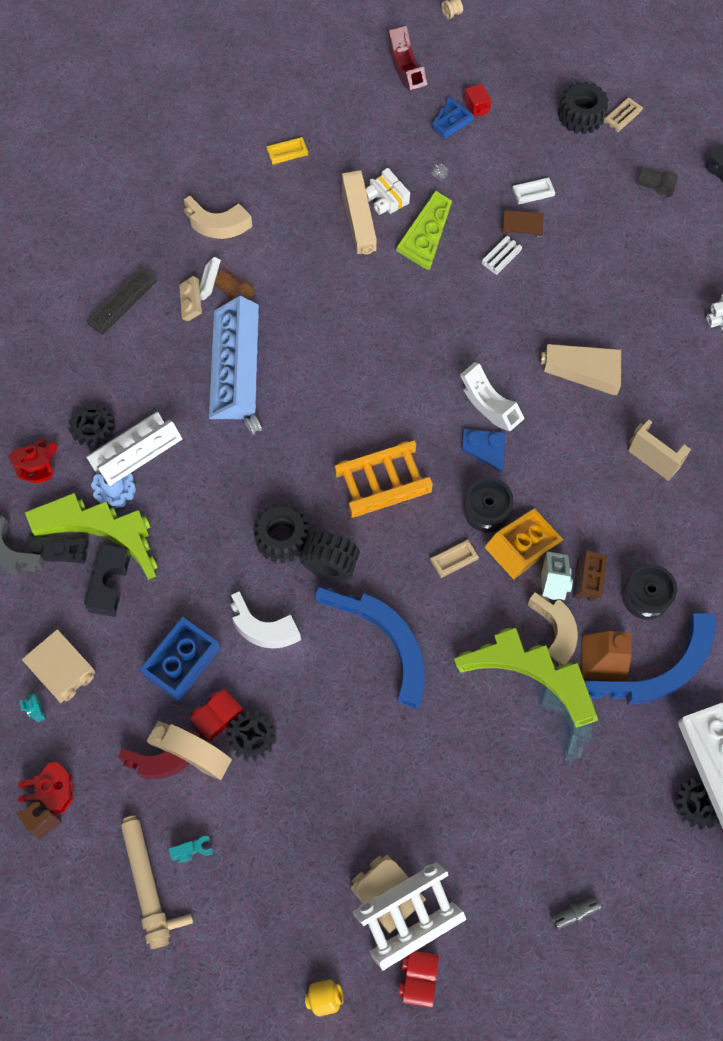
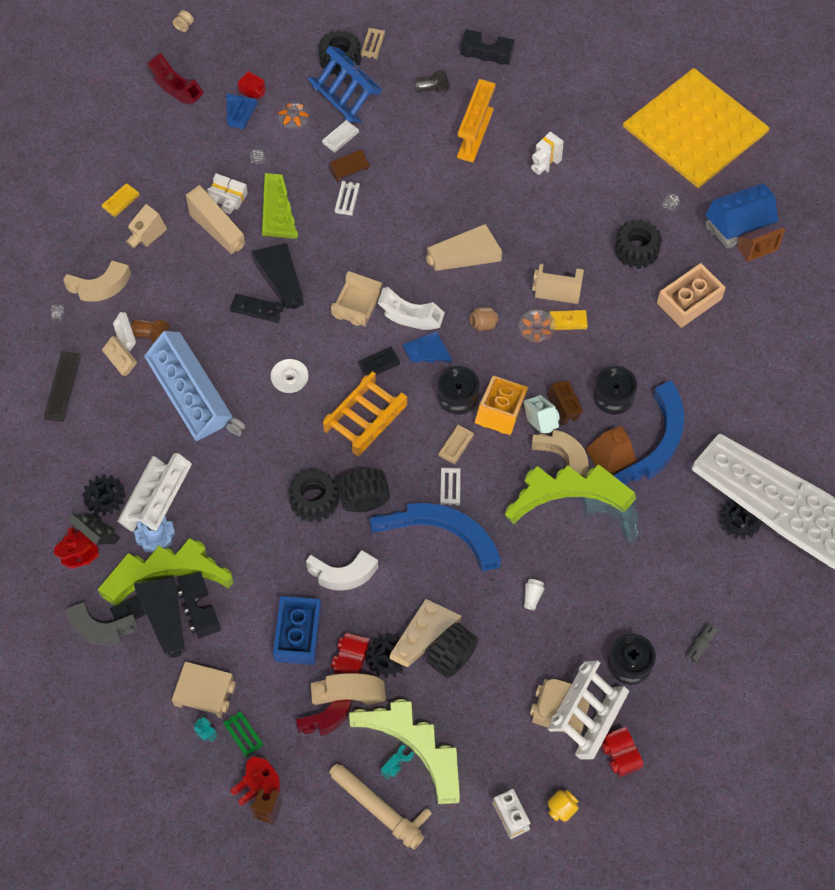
camera: 30 degrees left, 5 degrees down
(59, 452) = (94, 528): none -> pearl dark grey plate
(67, 572) = (162, 609): none -> black slope
(78, 731) = (233, 719): none -> green tile
(161, 228) = (57, 312): none -> clear bush
(232, 877) = (421, 739): none -> yellowish green arch
(266, 974) = (511, 813): none -> white hips
(290, 188) = (145, 227): none -> tan torso
(299, 732) = (423, 632): none -> tan wing
(312, 769) = (452, 650): none -> black tyre
(331, 394) = (286, 369): none -> white dish
(346, 319) = (256, 308): none -> black plate
(389, 296) = (279, 272): none -> black slope
(411, 613) = (450, 501): none -> white tile
(429, 434) = (379, 362): none -> black plate
(434, 756) = (533, 592): none -> white cone
(446, 360) = (357, 299): none -> tan panel
(500, 876) = (631, 659): none -> black wheel
(501, 153) = (293, 120): none -> clear dish
(560, 445) = (483, 319): none -> medium nougat head
(582, 140) = (358, 77): none -> blue fence
(612, 473) = (538, 319): none -> clear dish
(647, 492) = (569, 319): none -> yellow plate
(676, 239) = (476, 120): none -> light orange fence

